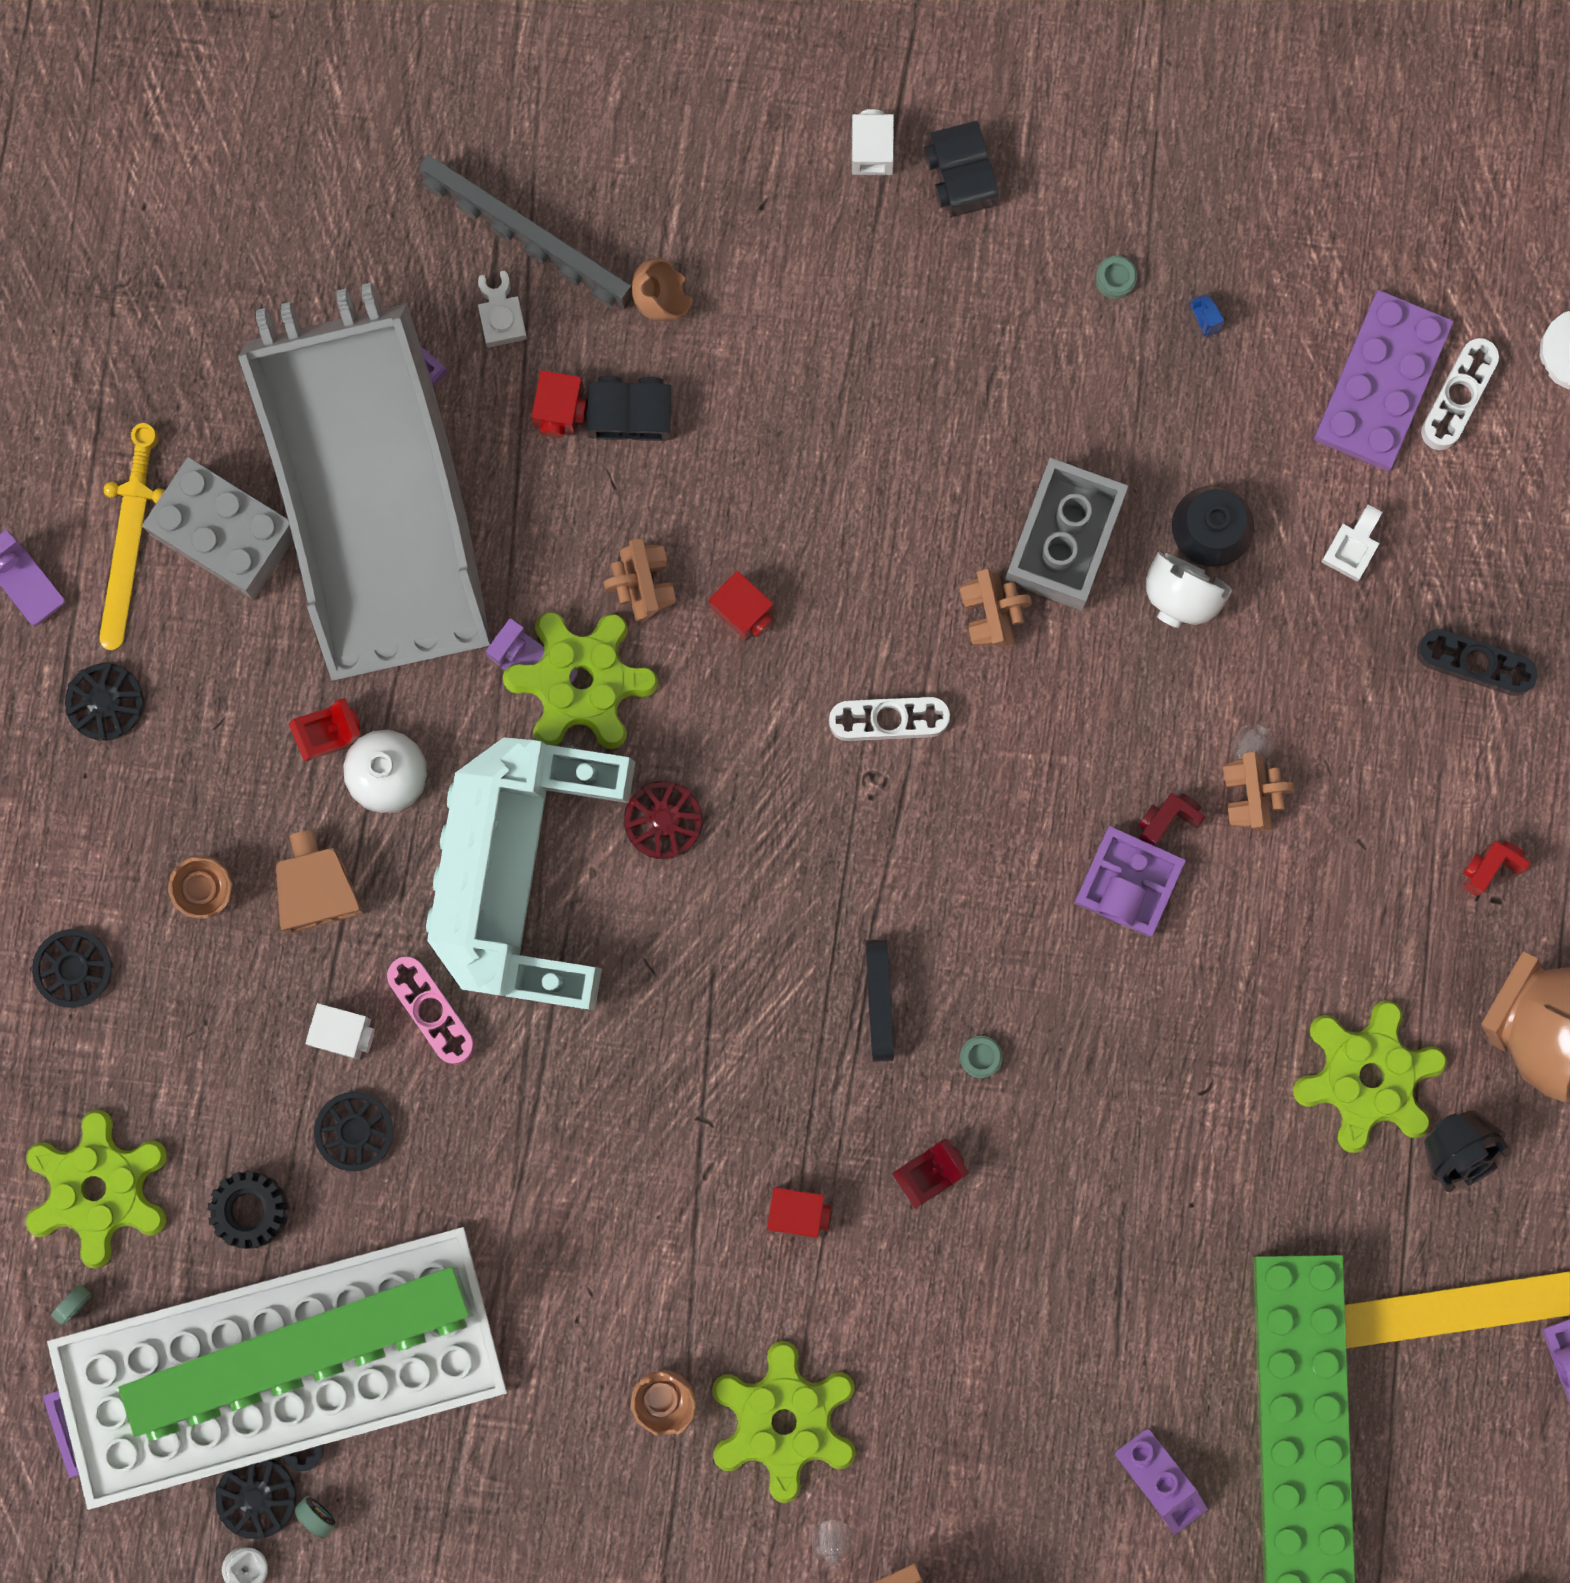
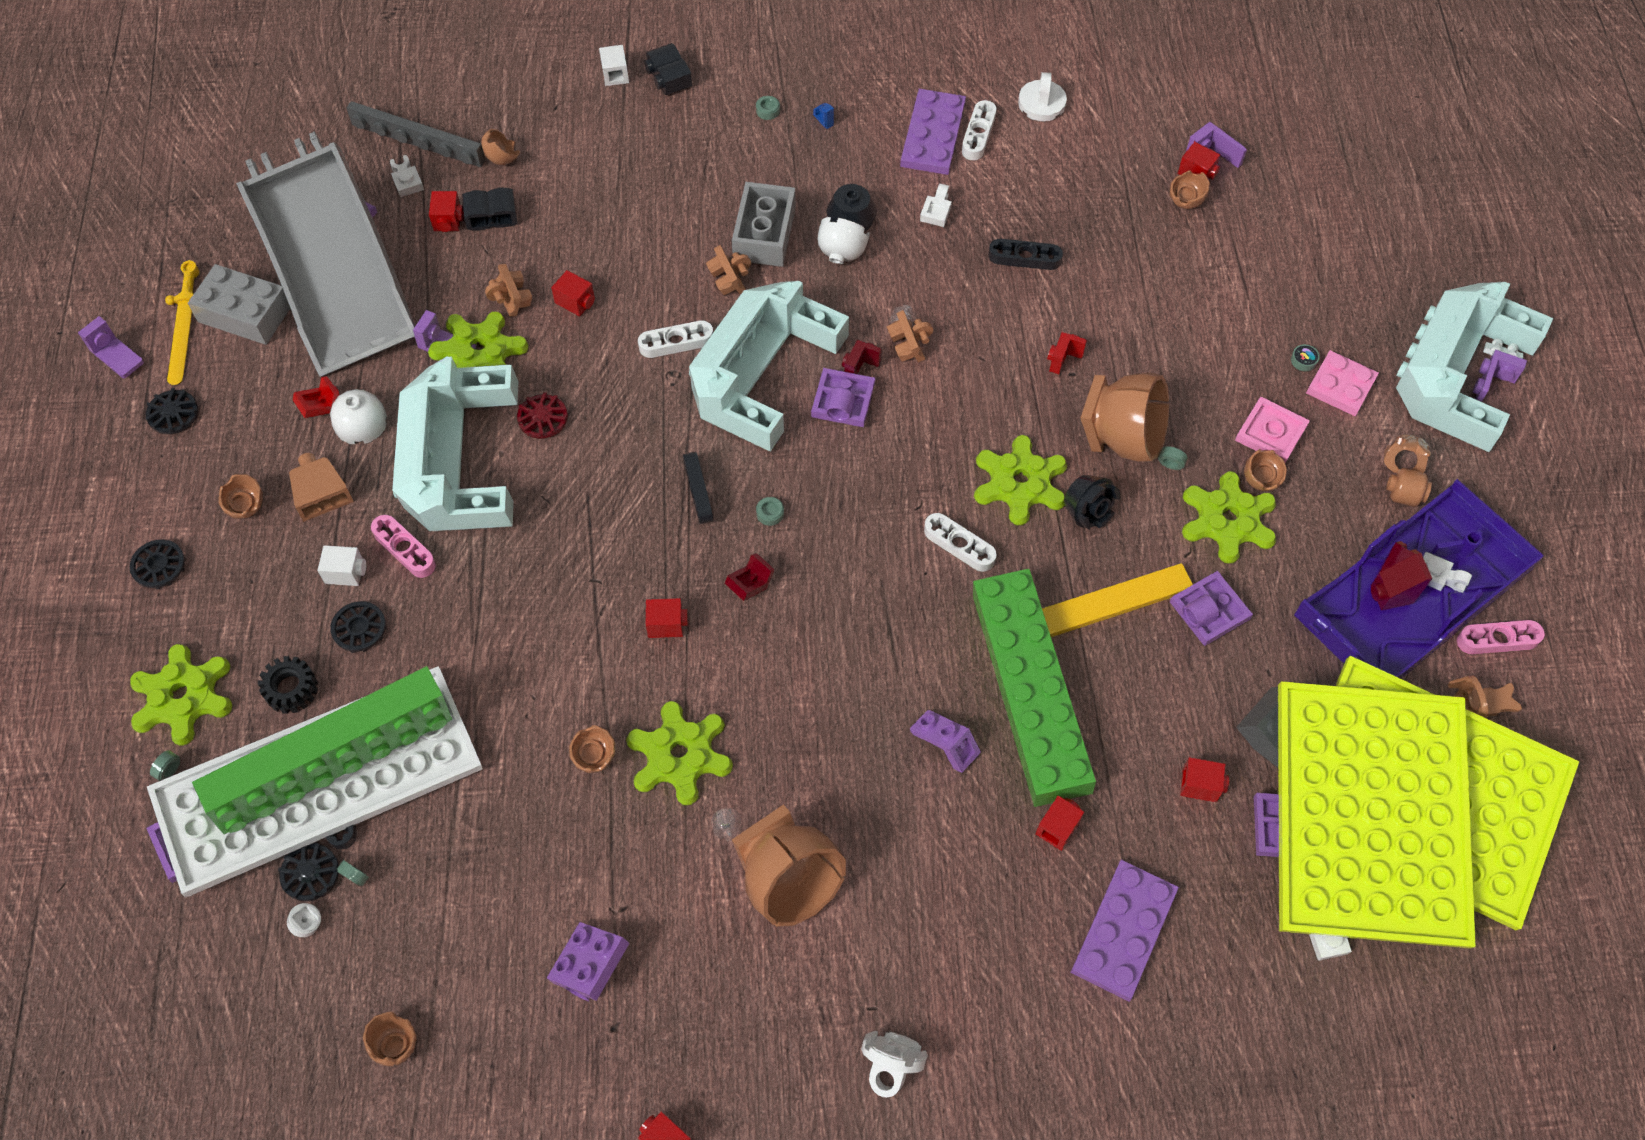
camera: 15 degrees left, 20 degrees down
(988, 775) = (745, 347): none -> light aqua wedge
(1271, 1167) = (957, 530): none -> white beam

